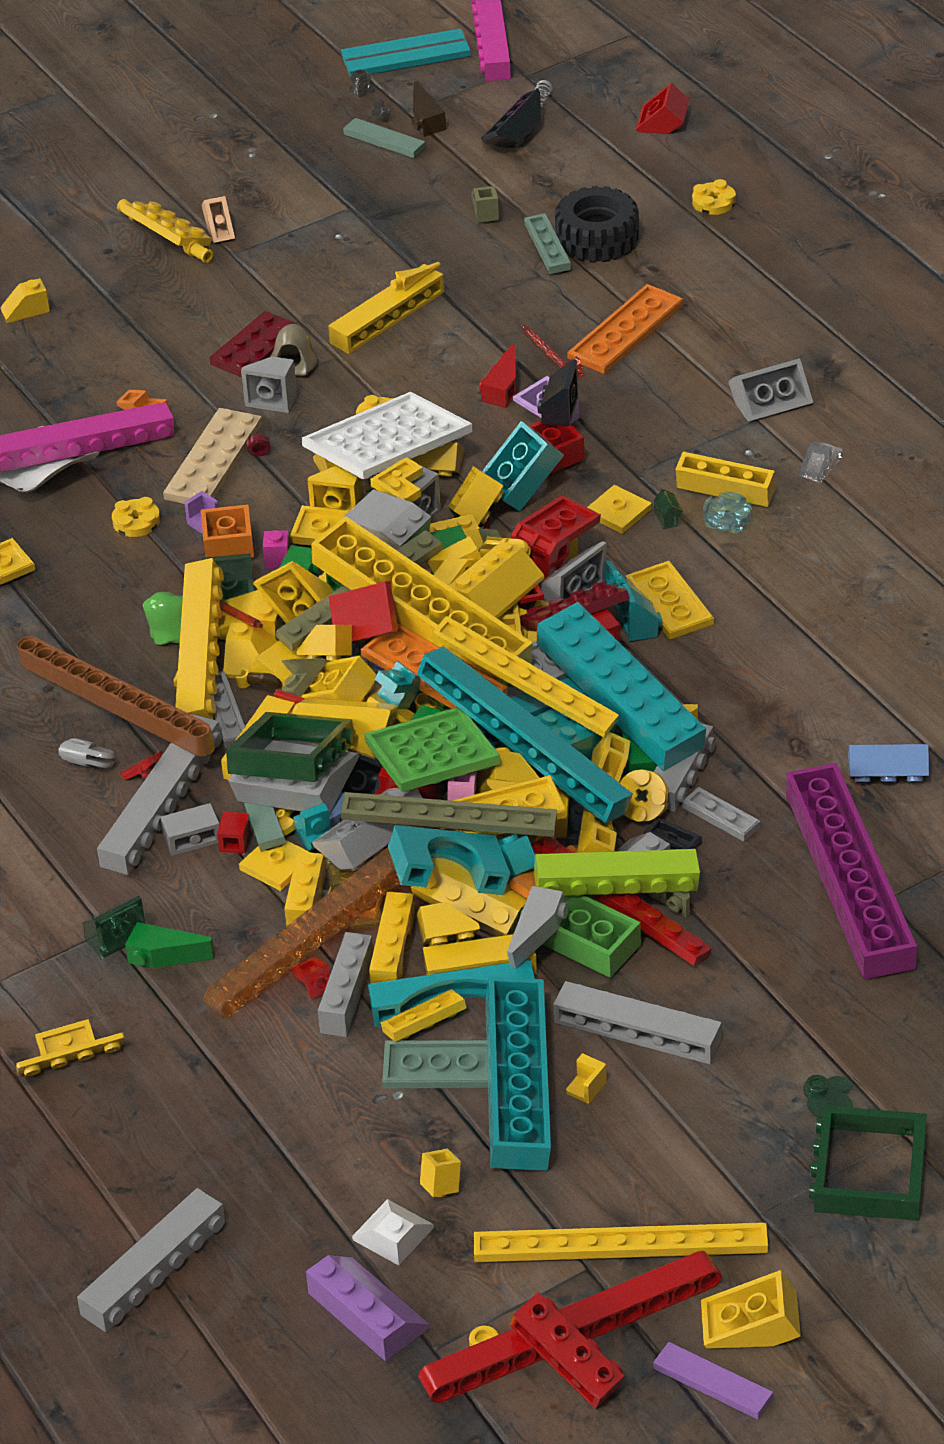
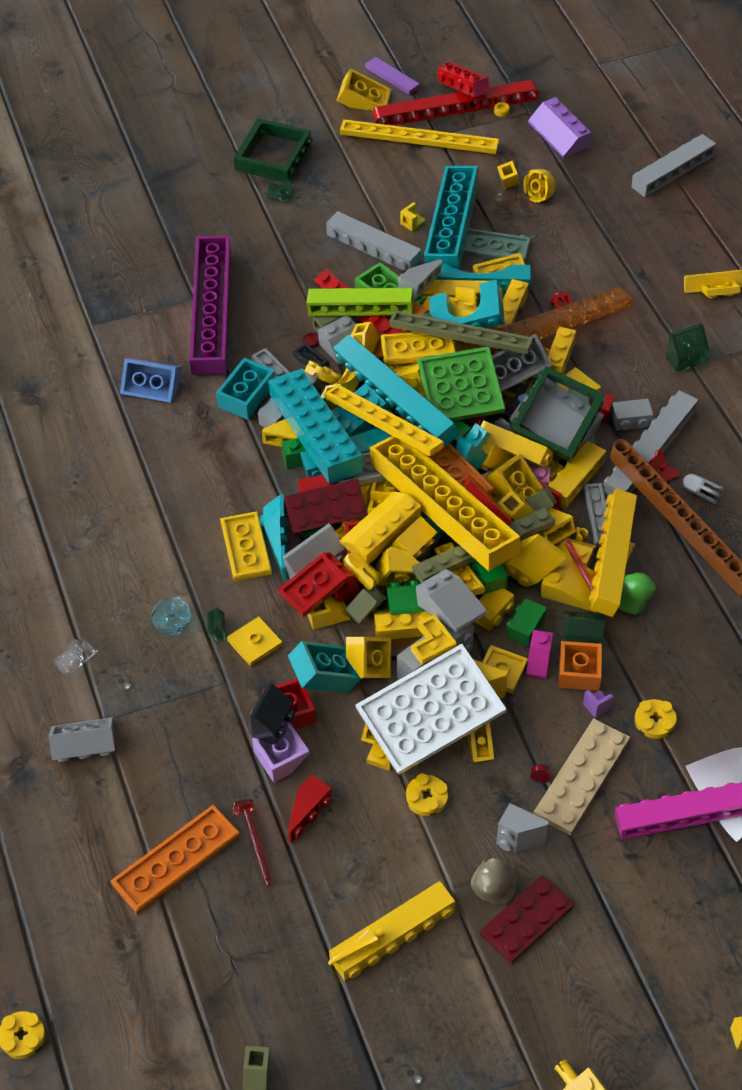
camera: 170 degrees left, 10 degrees up
(136, 399) = (642, 859): orange slope -> none
(163, 947) = (649, 334): green slope -> none
(345, 984) = (543, 289): light grey brick -> none
(380, 1166) = (539, 185): none -> yellow cylinder
(393, 1232) = (539, 156): white slope -> none
(547, 243) = (211, 997): sand green plate -> none
(597, 223) = (149, 971): black tyre -> none
(719, 476) = (162, 636): yellow brick -> none
(744, 760) = (245, 388): none -> teal brick

